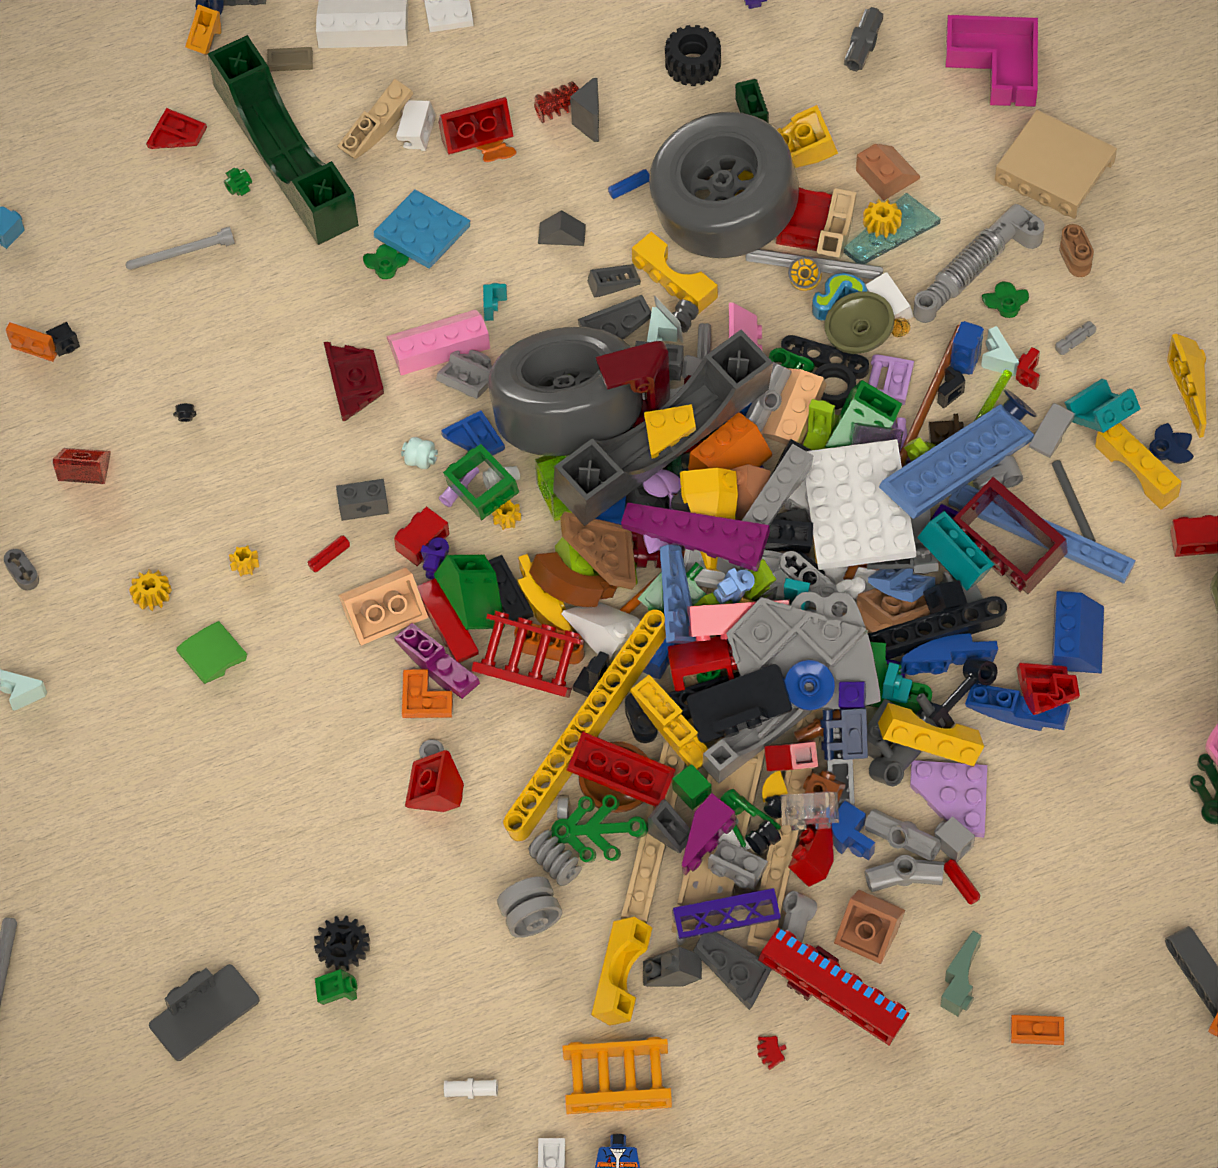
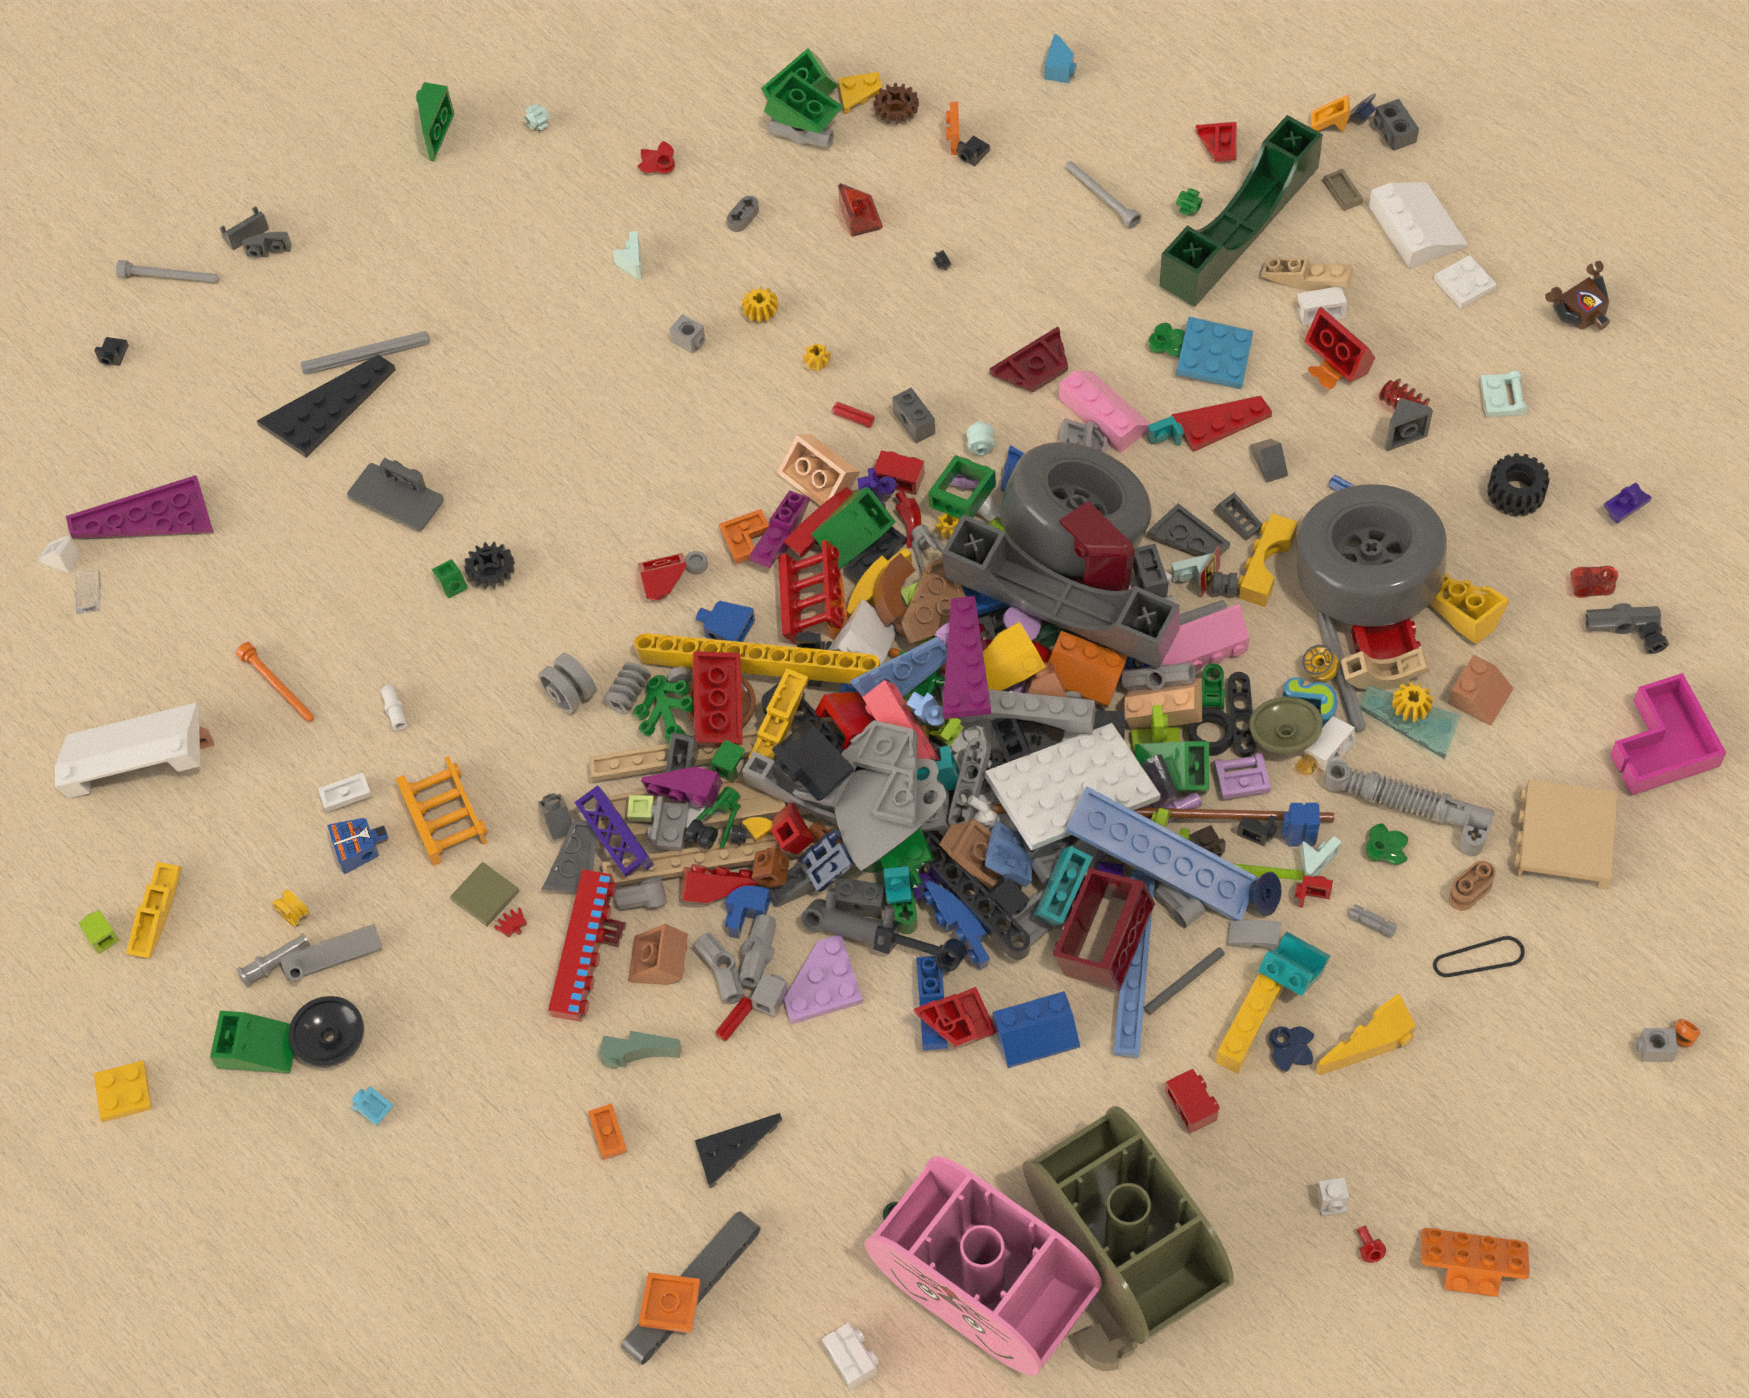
camera: 70 degrees right, 0 degrees up
(50, 1062) = (318, 413): none -> black wing
(146, 676) = (687, 334): none -> light grey brick
(211, 652) = (721, 370): bright green slope -> none
(470, 544) = (910, 513): none -> red bar
(499, 253) = (1219, 421): none -> red wing
(508, 541) = (924, 539): none -> light grey plant
(523, 745) = (726, 621): none -> blue torso
(585, 36) = (1496, 398): none -> light aqua plate
(626, 943) = (558, 771): yellow arch -> none
(668, 426) = (1067, 598): yellow wing -> none
(708, 883) = (640, 808): none -> yellowish green plate
(728, 1065) = (484, 894): none -> olive tile
(751, 100) = (1485, 552): dark green brick -> none
(810, 809) = (737, 858): clear brick -> none
(816, 43) = (1592, 582): none -> clear red piece
(816, 674) = (842, 798): blue dish -> none
(852, 694) = (856, 844): dark purple plate -> none
(898, 26) = (1652, 636): none -> black wheel
(905, 728) = (863, 960): yellow arch -> none
(1093, 933) = (724, 1149): none -> black wing
(1152, 277) = (1482, 968): none -> black piece

